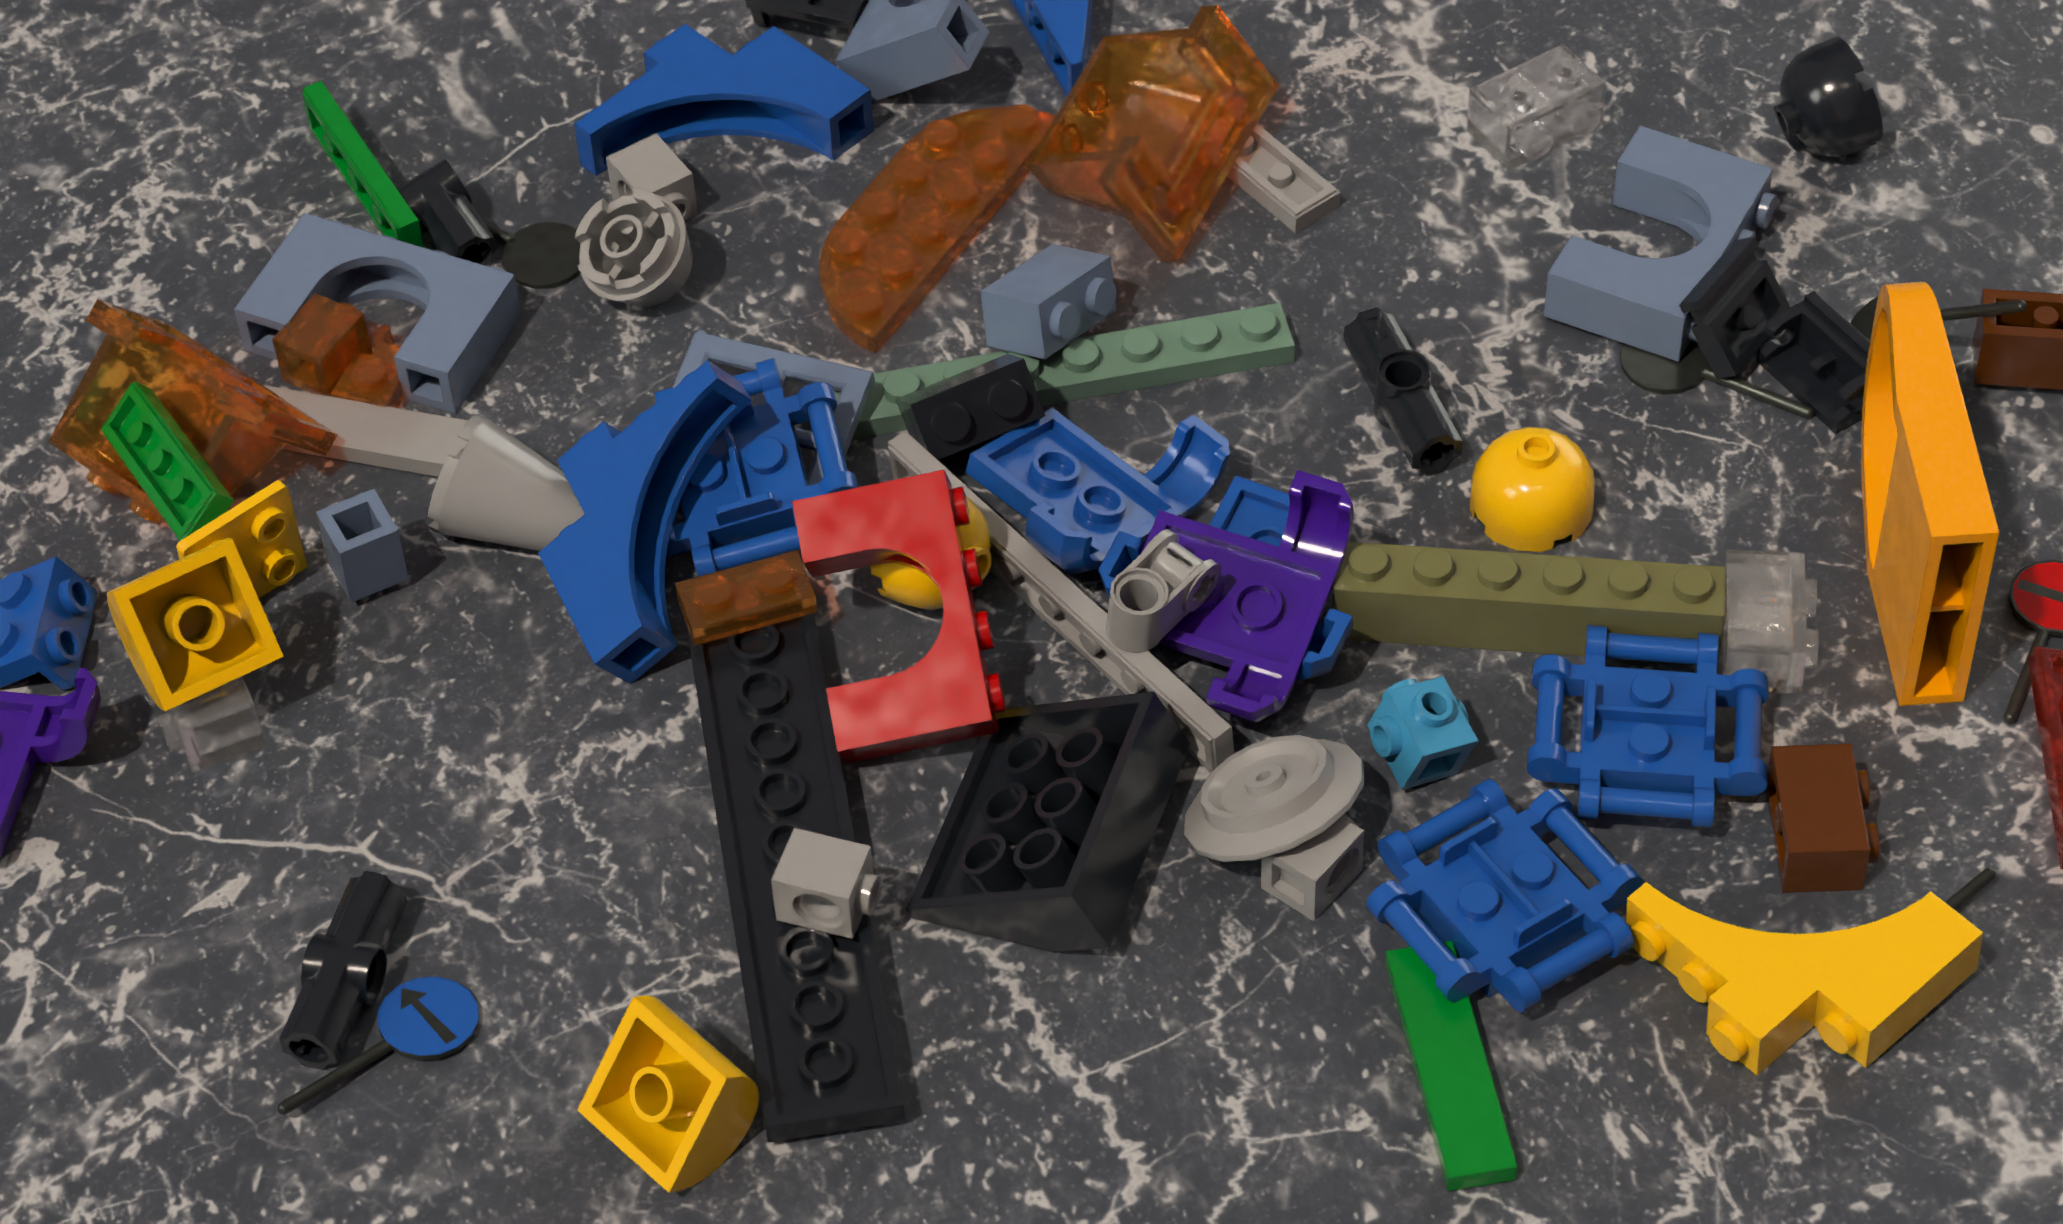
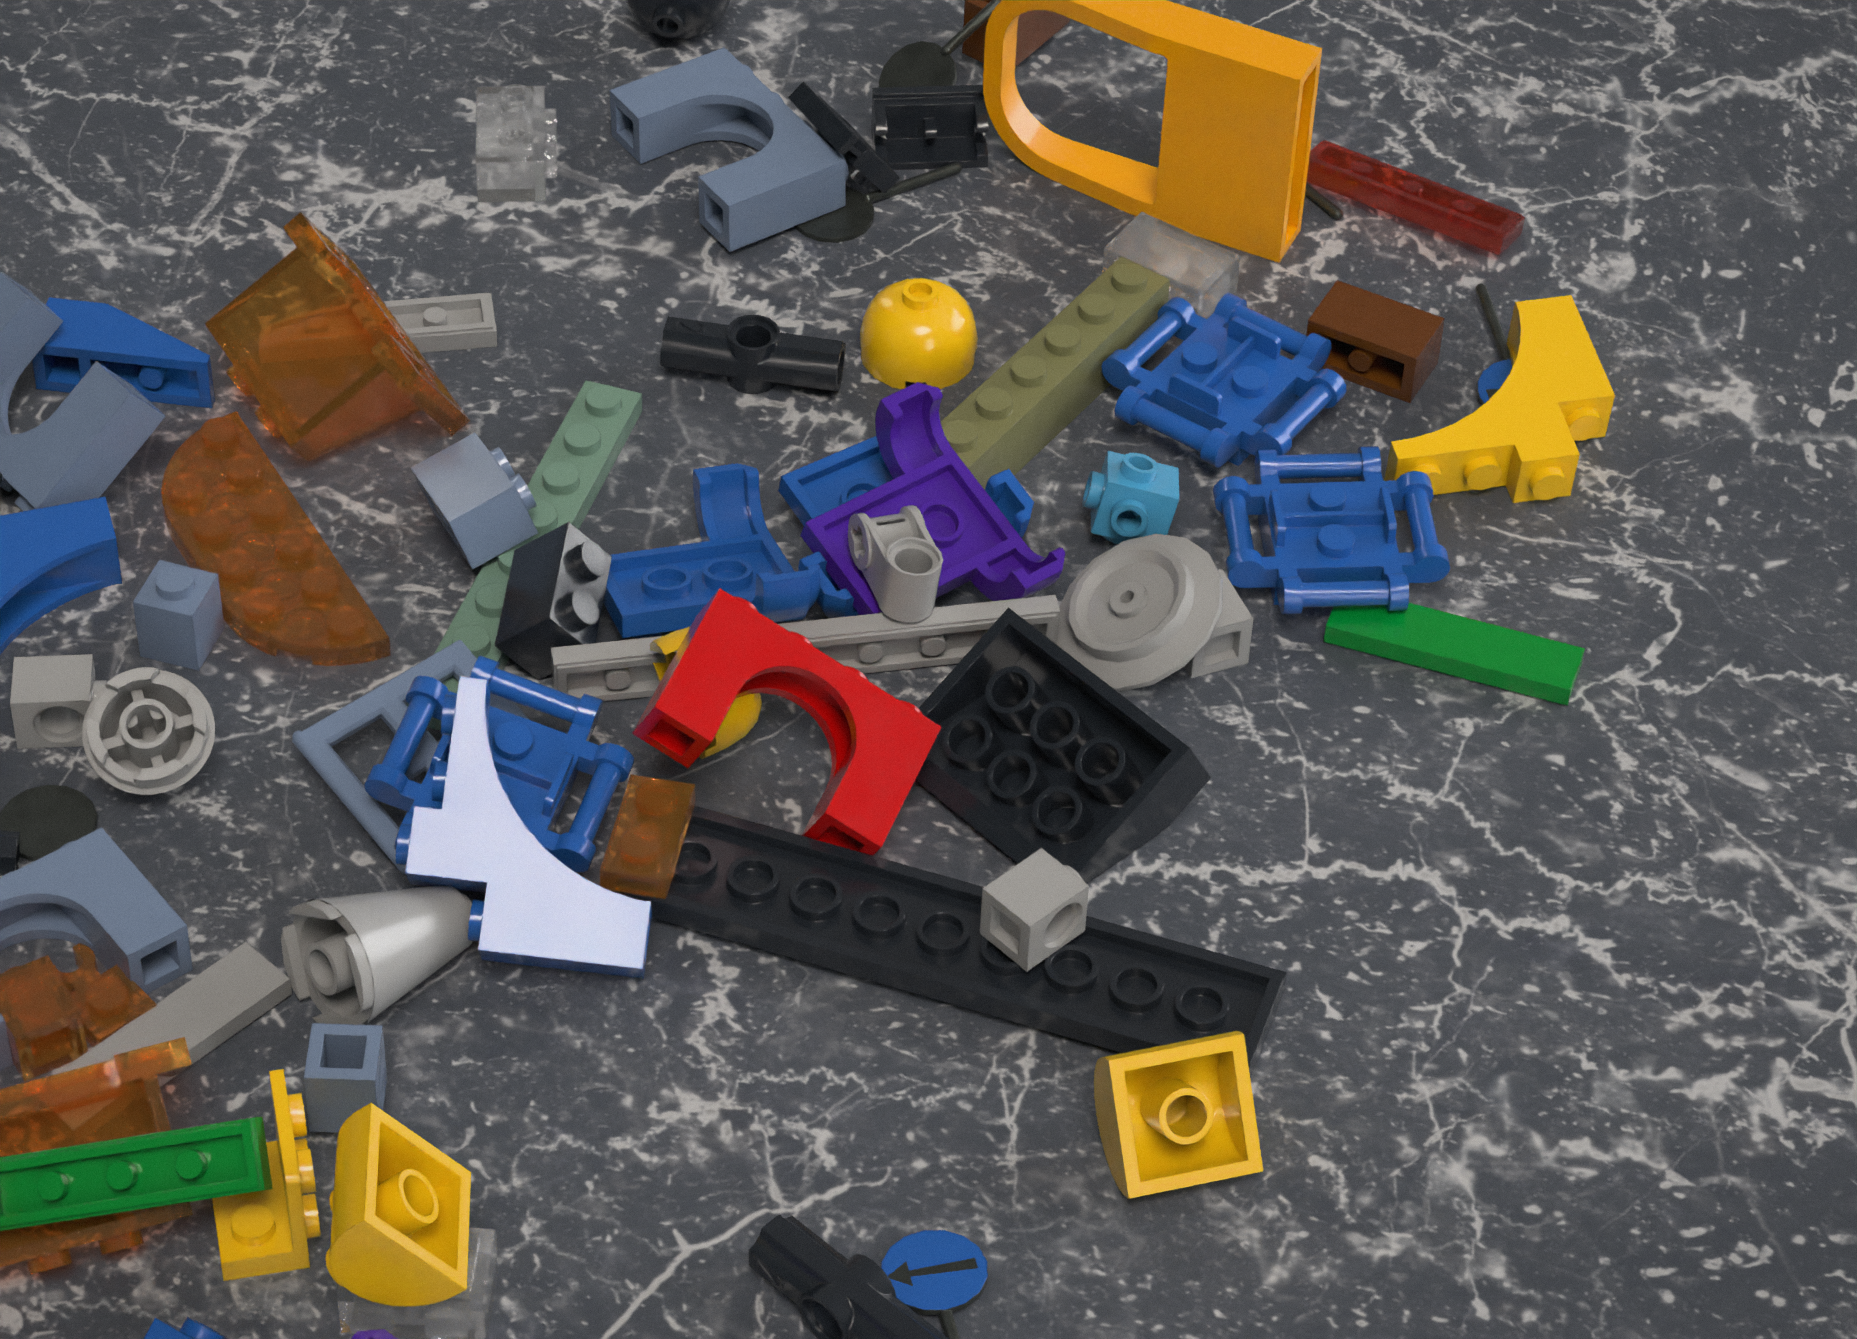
camera: 65 degrees left, 5 degrees down
(792, 202) = (178, 615): none -> sand blue brick

